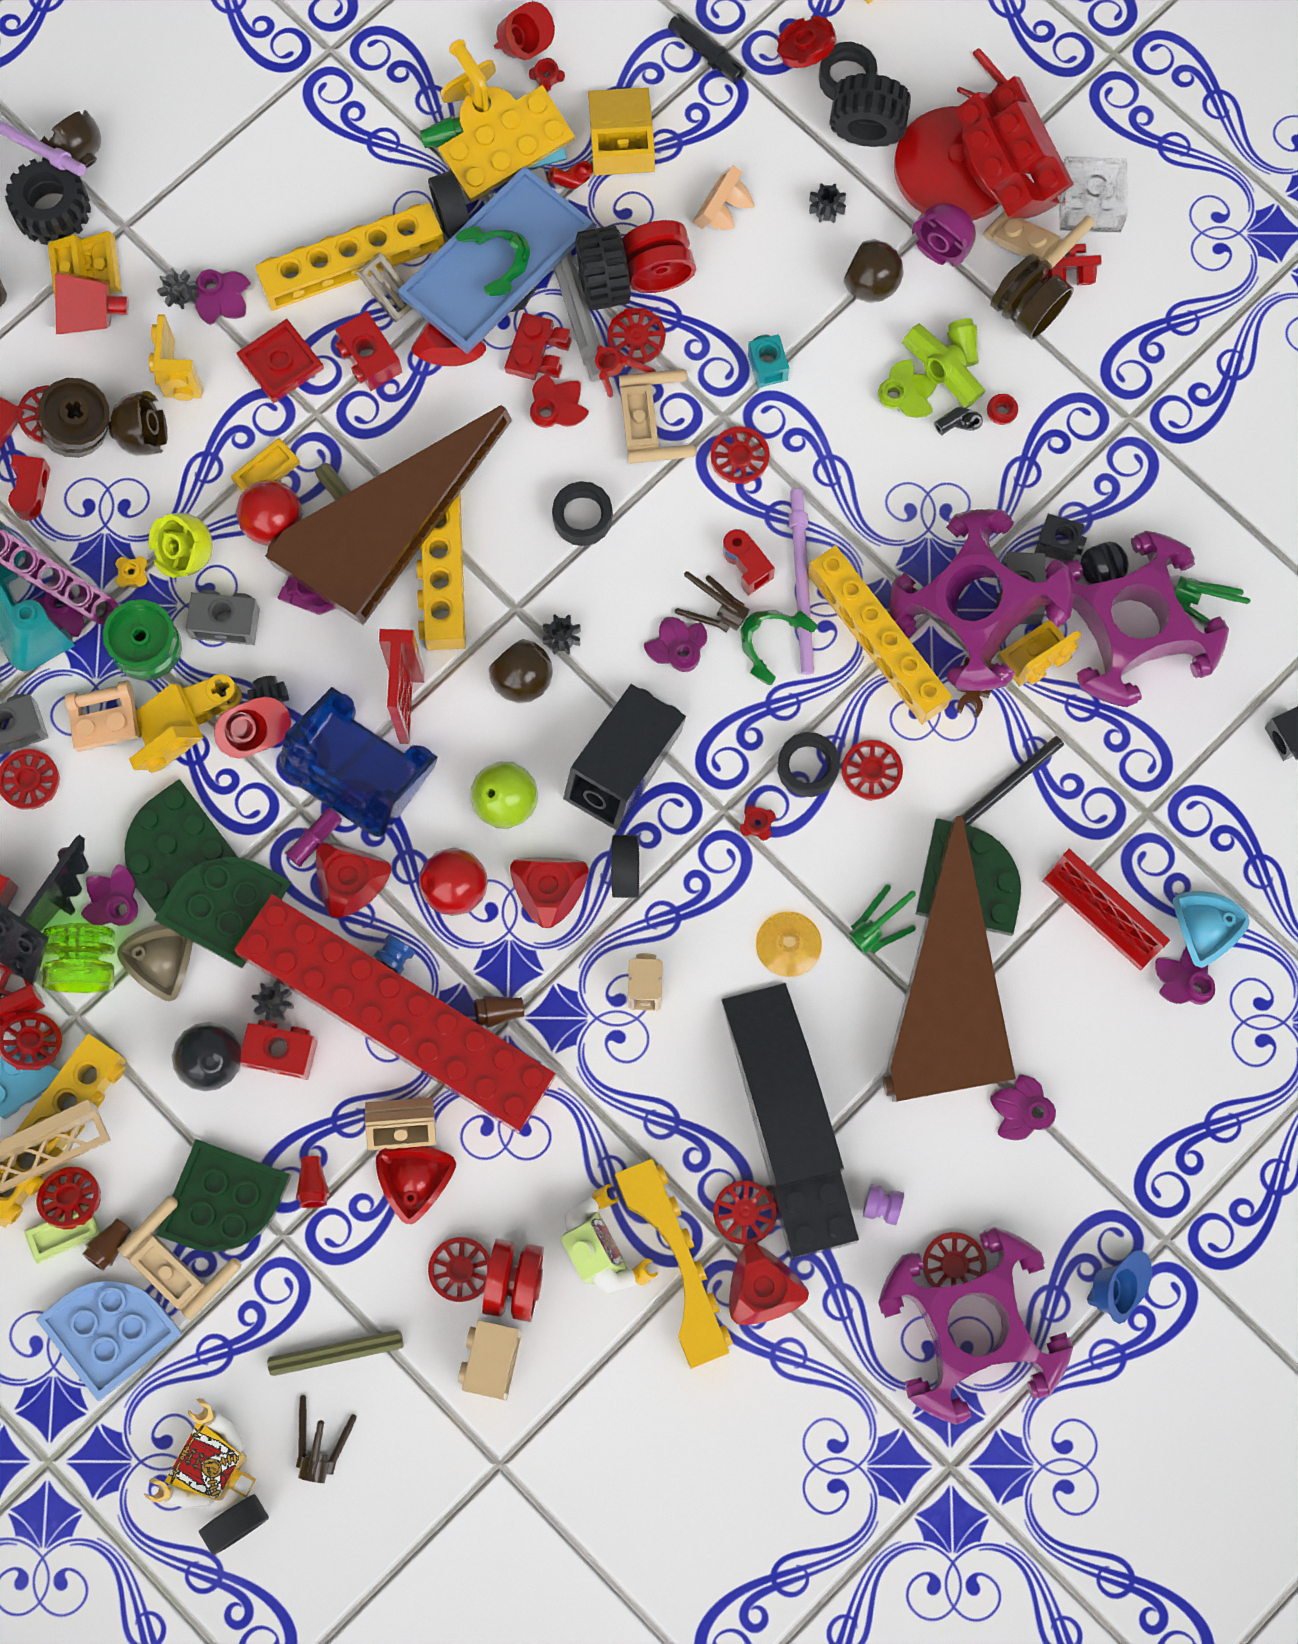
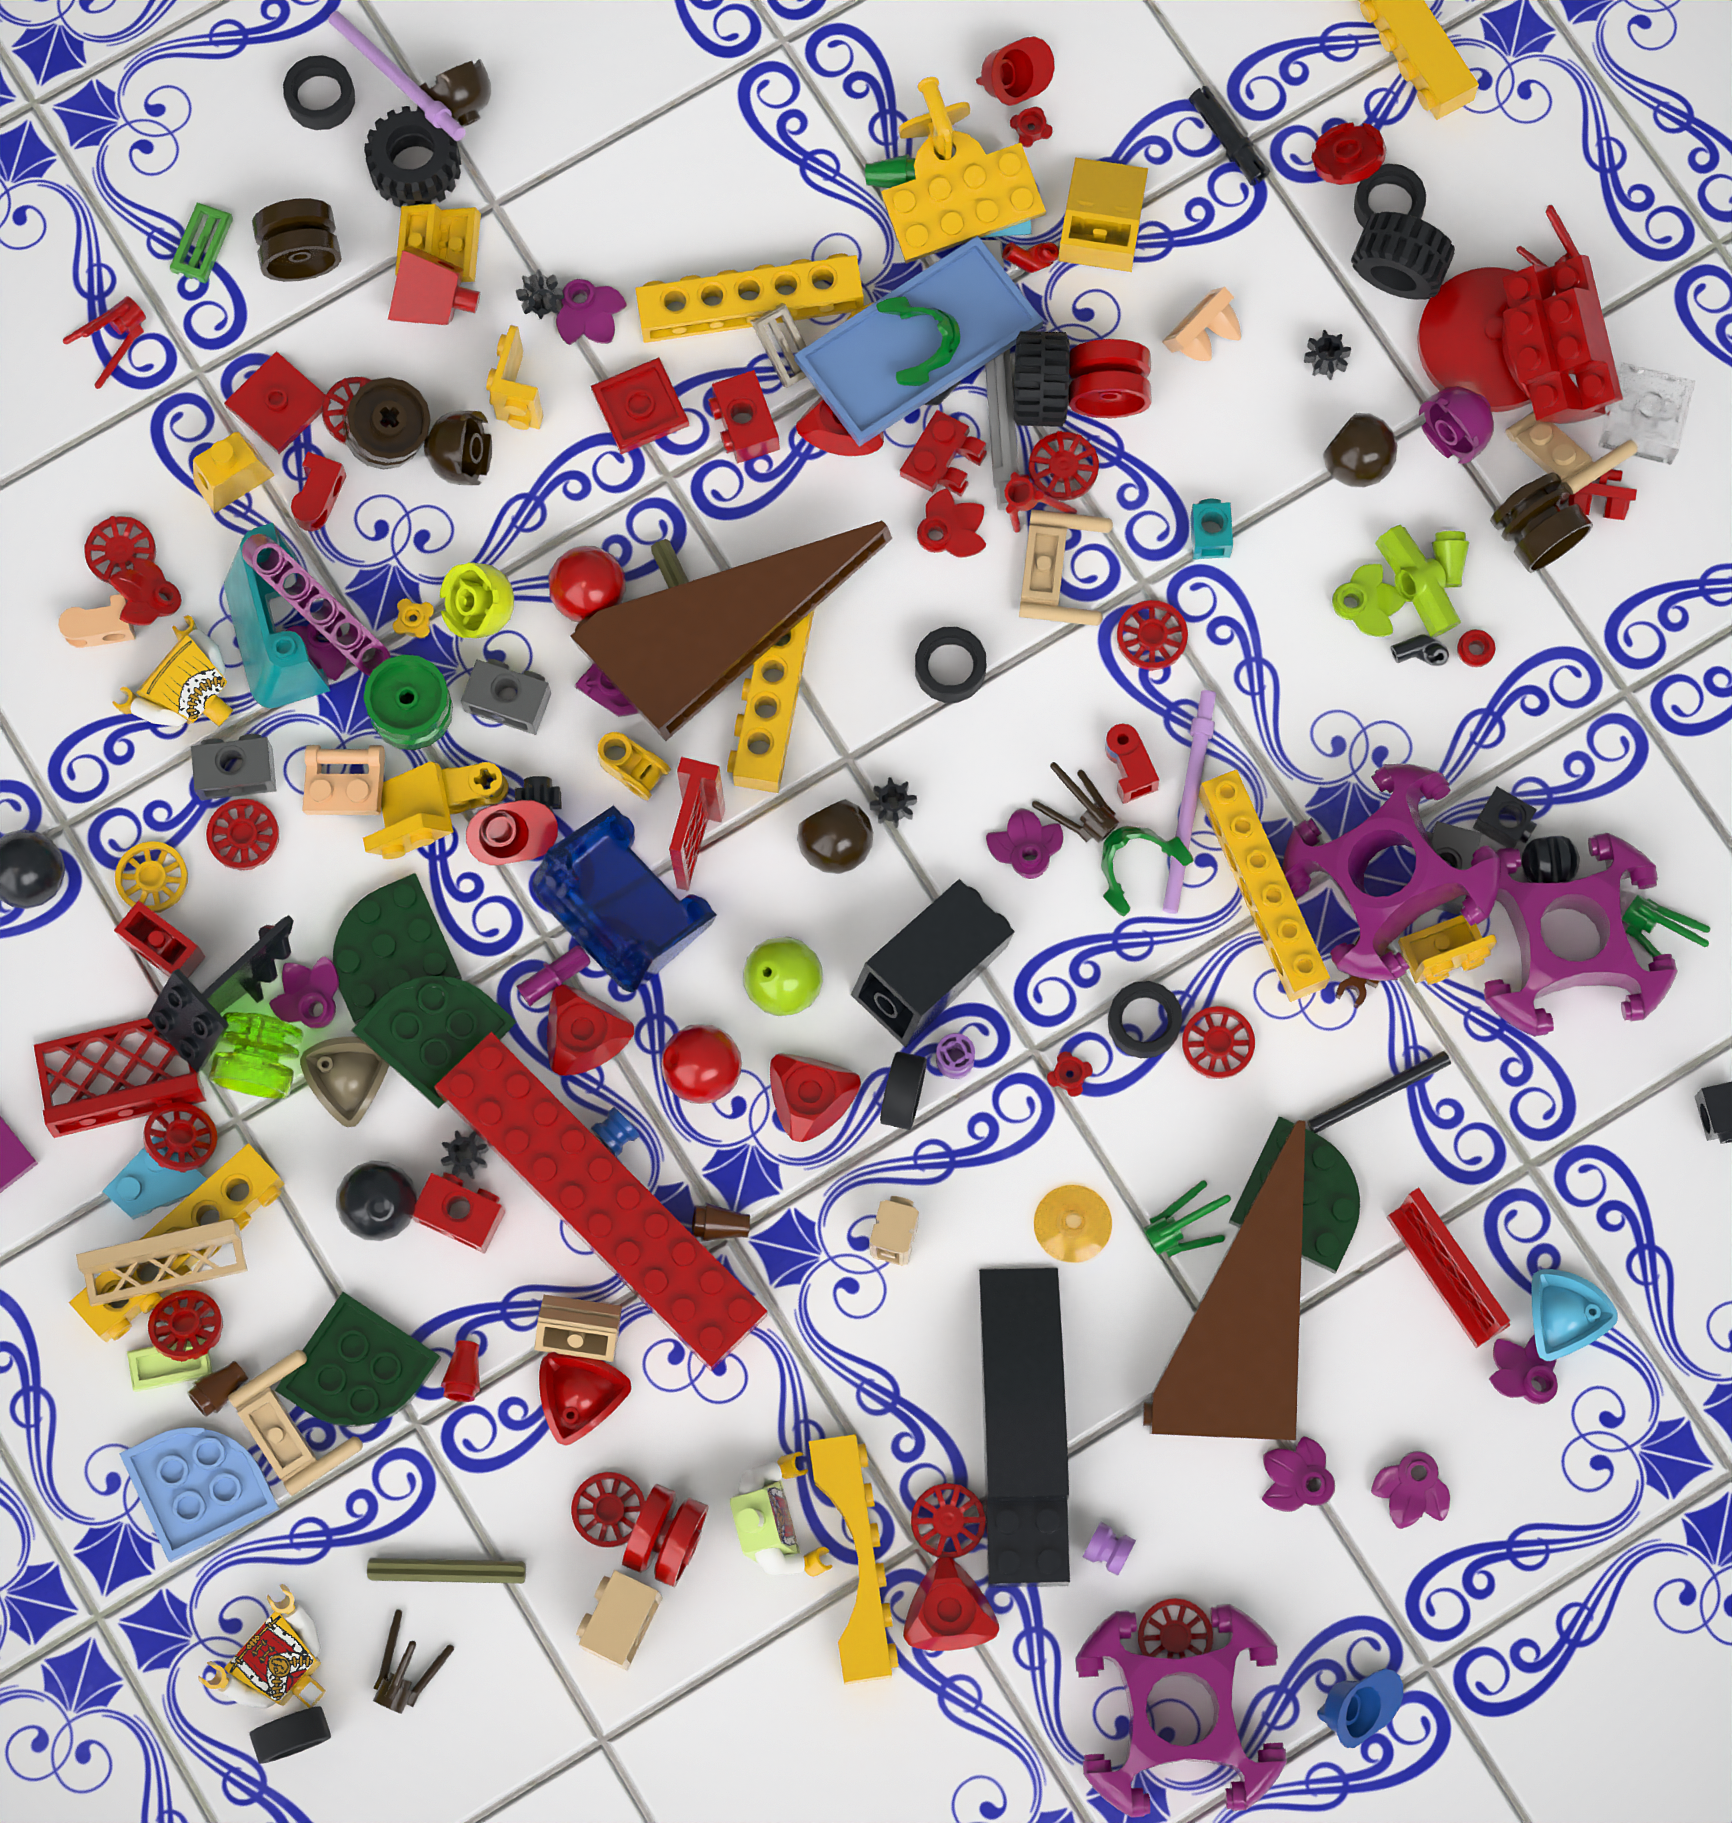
camera: 15 degrees right, 0 degrees up
(270, 464) = (596, 528): yellow tile -> none
(344, 654) = (637, 769): none -> yellow piece
(448, 202) = (879, 260): black tyre -> none
(661, 835) = (954, 1063): none -> medium lavender wheel
(1118, 1103) = (1410, 1495): none -> magenta plate

